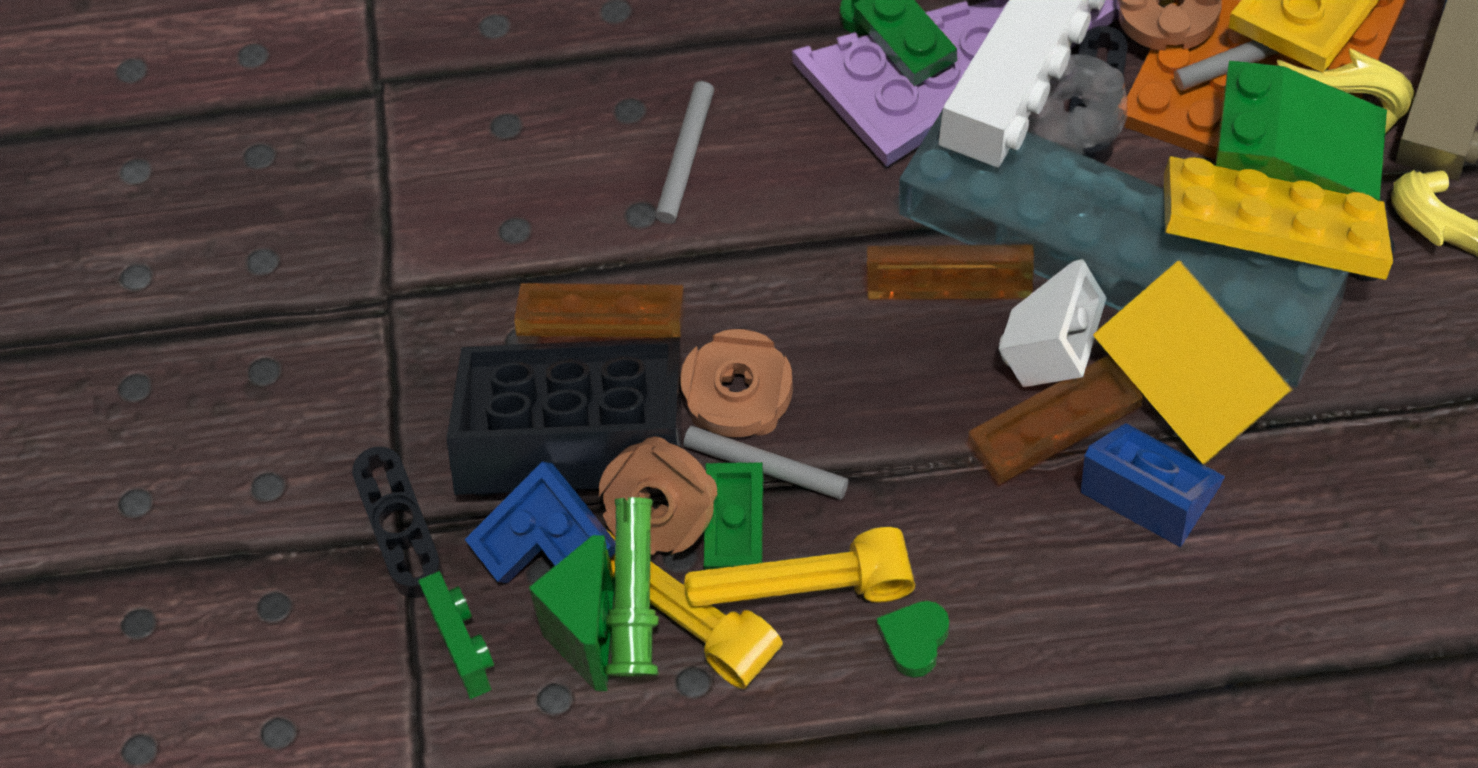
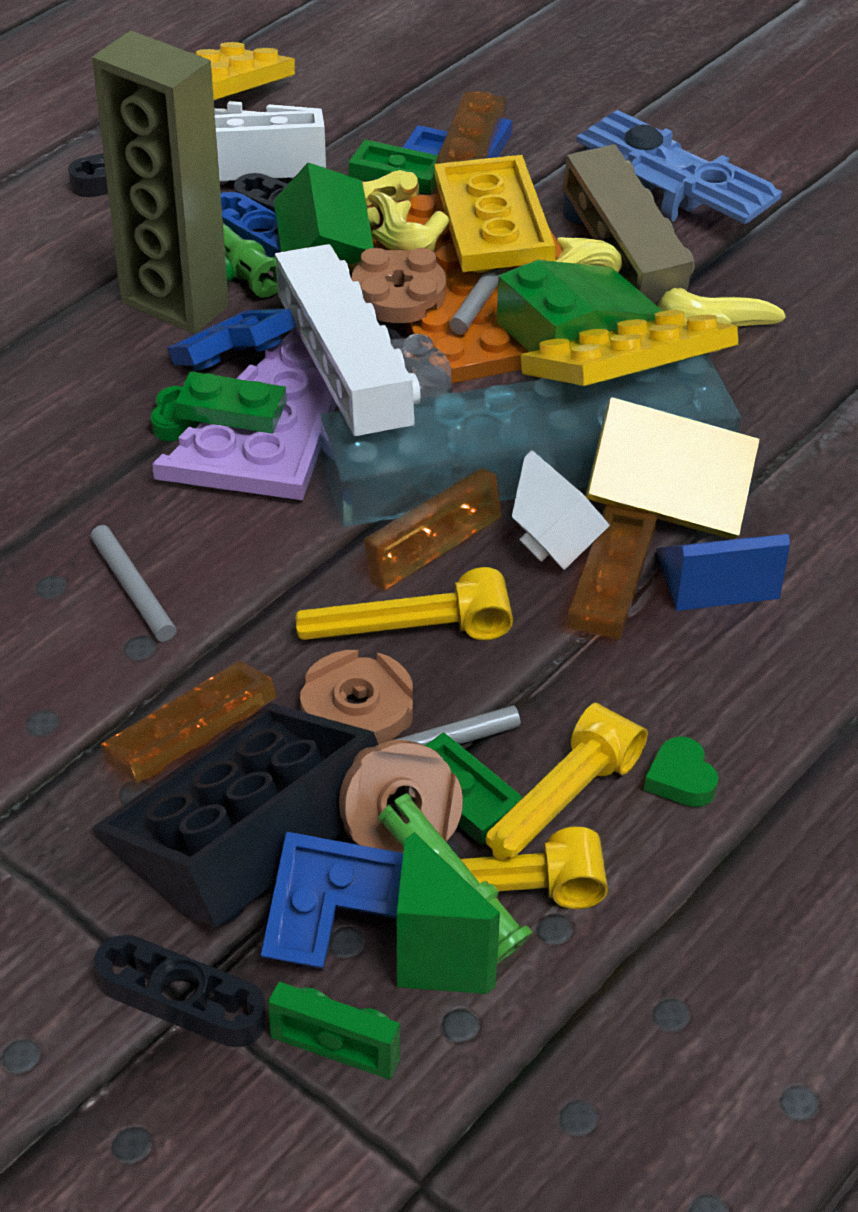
camera: 50 degrees left, 15 degrees down
(908, 367) = (477, 604): none -> yellow axle

